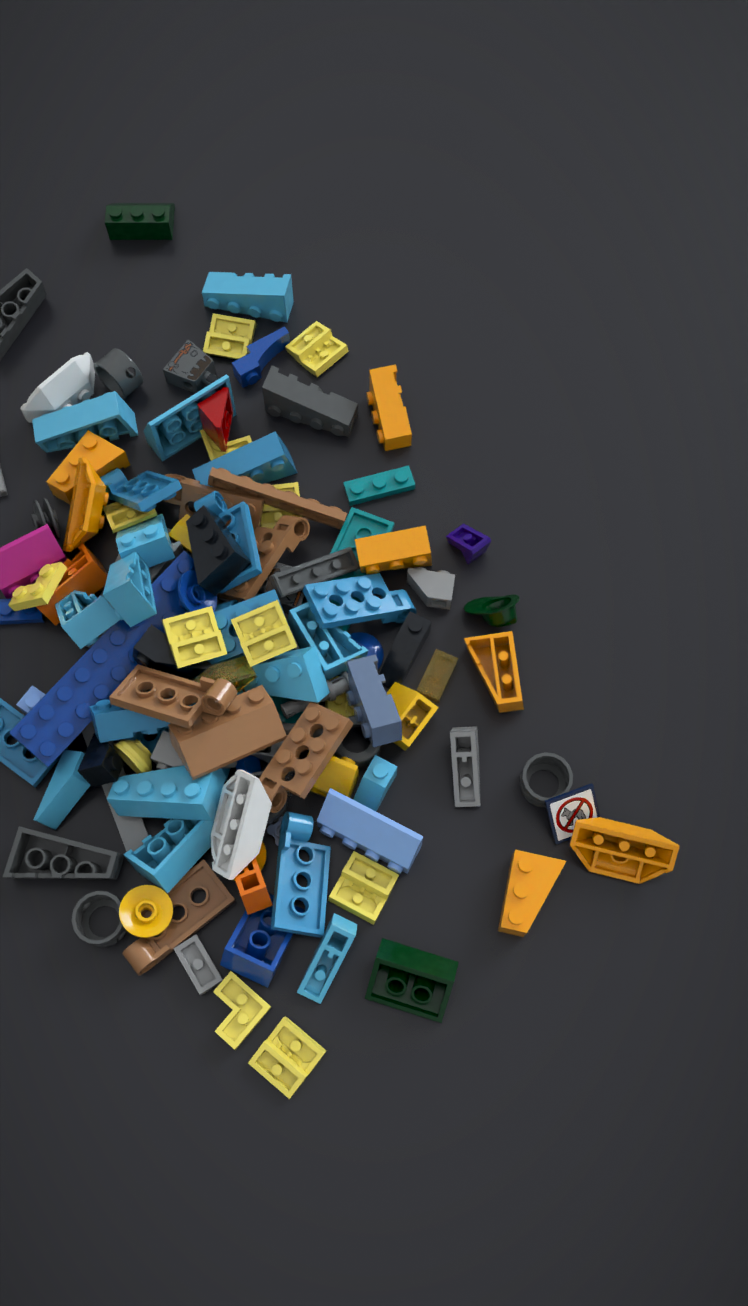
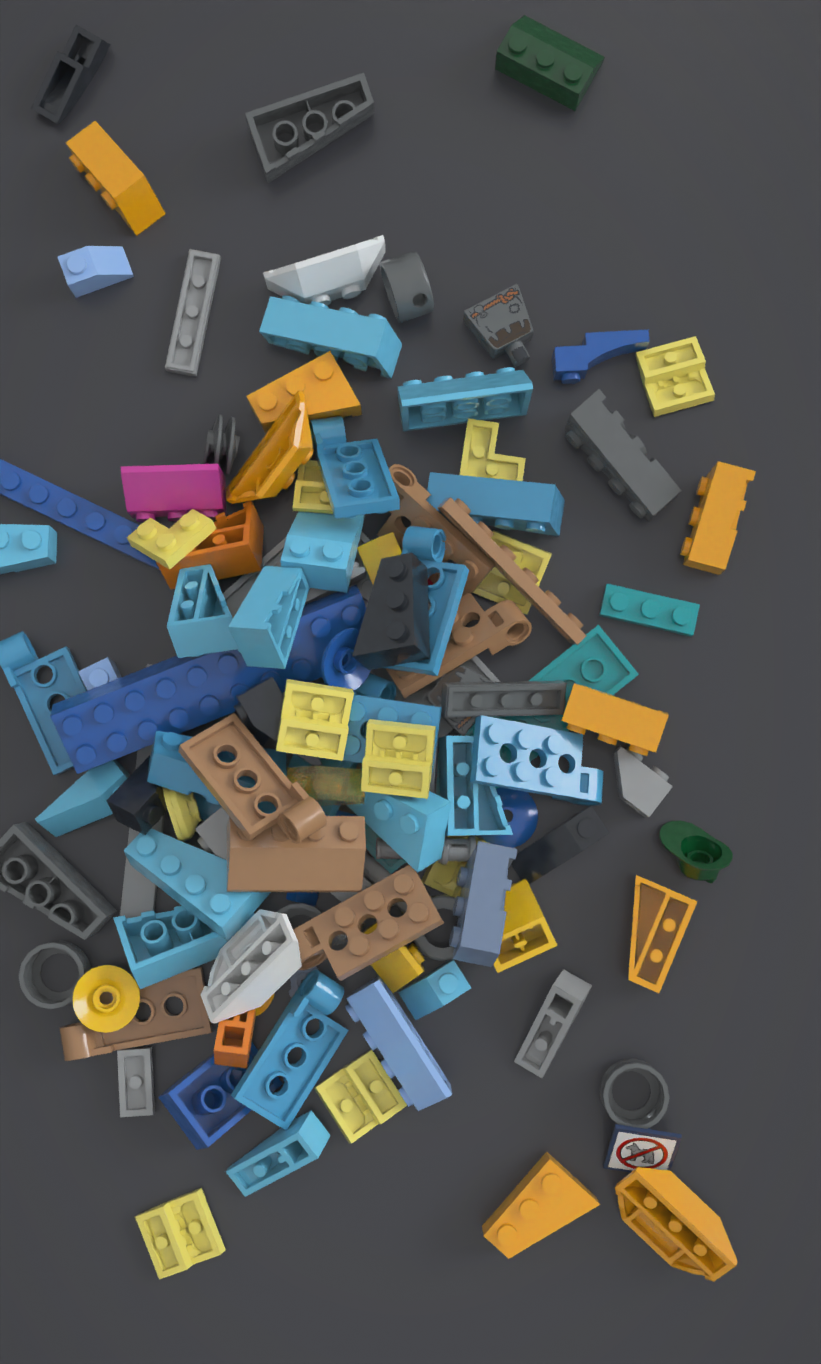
camera: 30 degrees right, 15 degrees up
(217, 416) = (494, 421): red slope -> none
(229, 336) = (573, 301): light yellow slope -> none
(246, 1011) = (163, 1156): light yellow plate -> none
(250, 295) = (628, 255): medium azure wedge -> none
(411, 980) = (357, 1230): dark green slope -> none
(437, 675) = (581, 895): clear yellow plate -> none
(469, 541) = (714, 748): dark purple slope -> none

